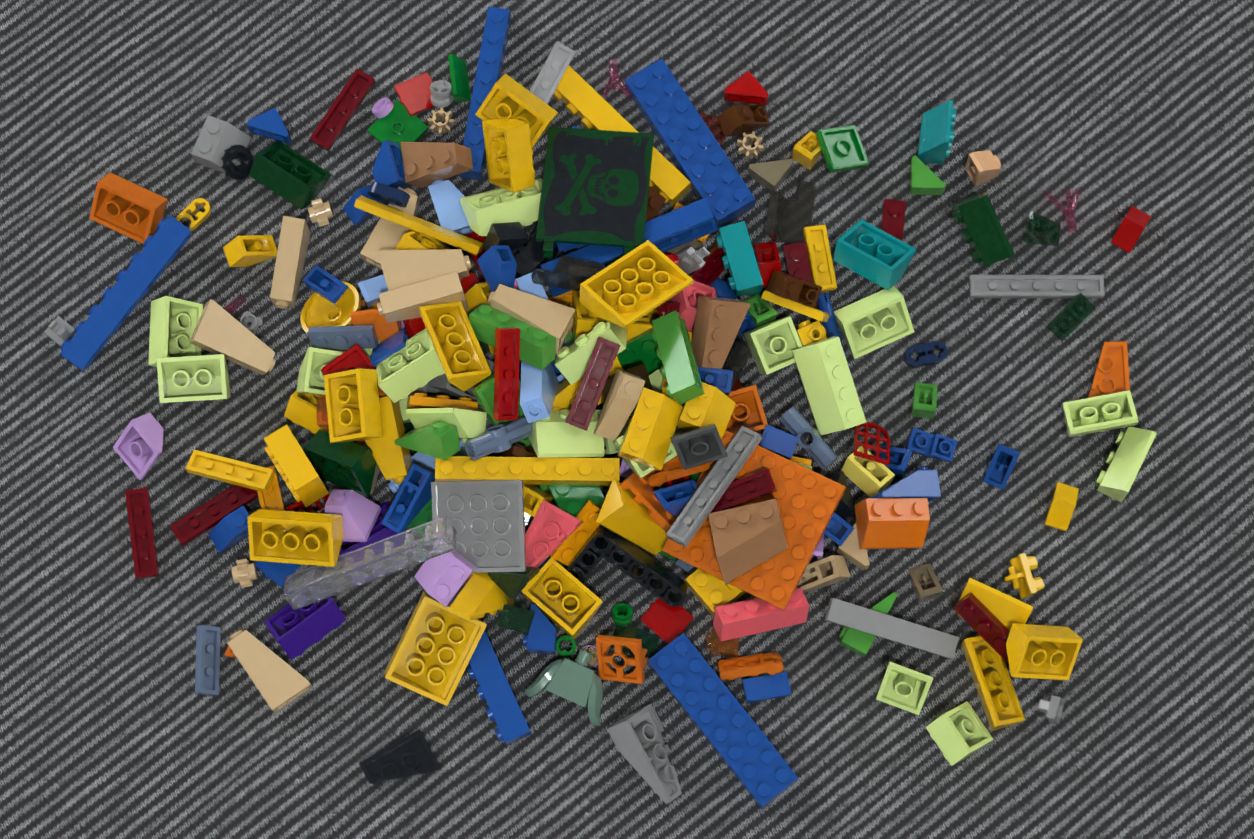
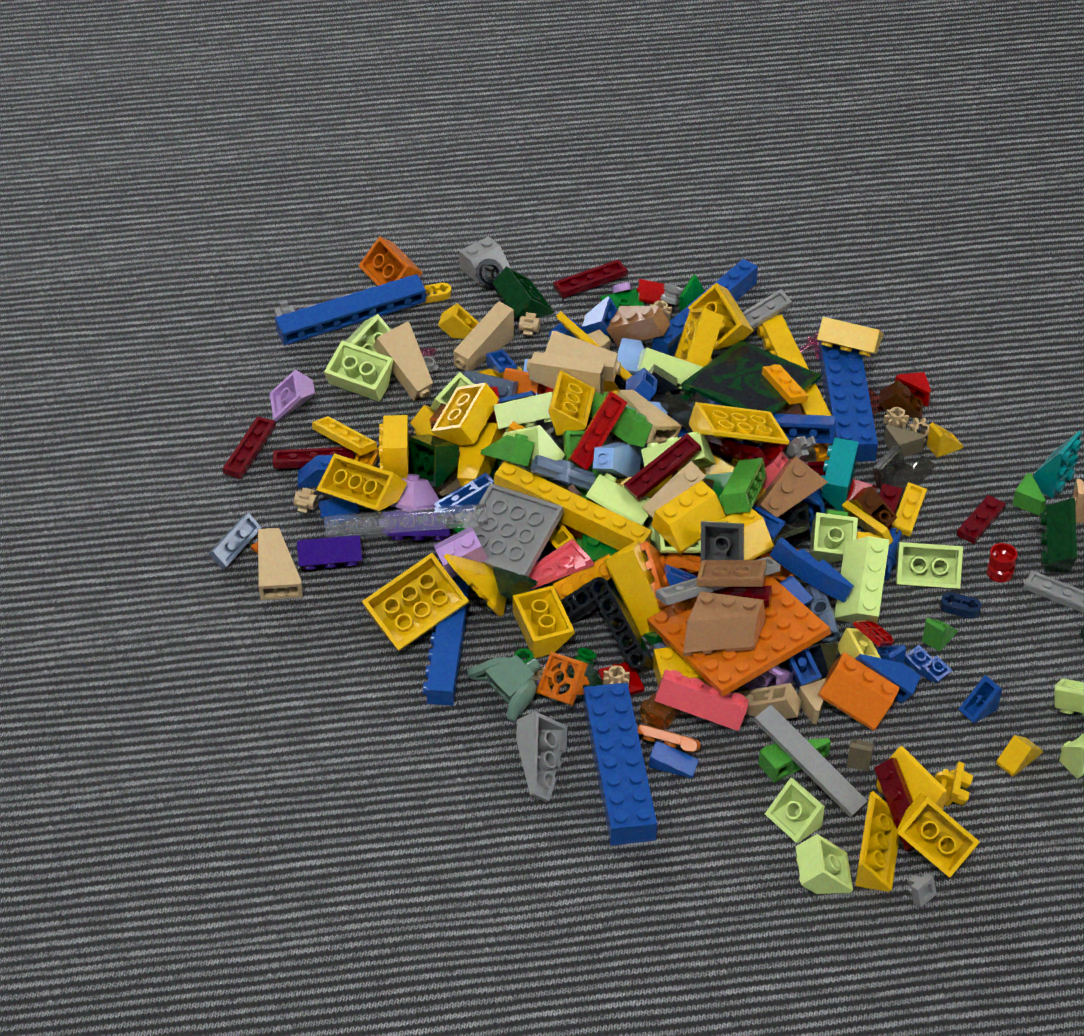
camera: 25 degrees right, 30 degrees down
(270, 126) = (528, 265): blue slope -> none
(389, 194) = (589, 325): dark blue beam -> none
(400, 760) = (334, 669): black wing -> none
(516, 618) = (493, 610): clear green slope -> none
(541, 635) = (507, 638): blue slope -> none
(632, 177) = (784, 384): none -> light orange plate
(660, 71) = (849, 336): none -> yellow slope
(662, 633) = (616, 675): none -> tan gear
(726, 476) = (731, 573): none -> medium nougat tile
(779, 148) = (914, 426): none -> tan gear
(791, 409) = (817, 574): none -> blue slope
(842, 148) = (971, 449): green plate -> none
(873, 254) = (954, 518): teal slope -> none
(941, 285) = (1001, 562): none -> red wheel

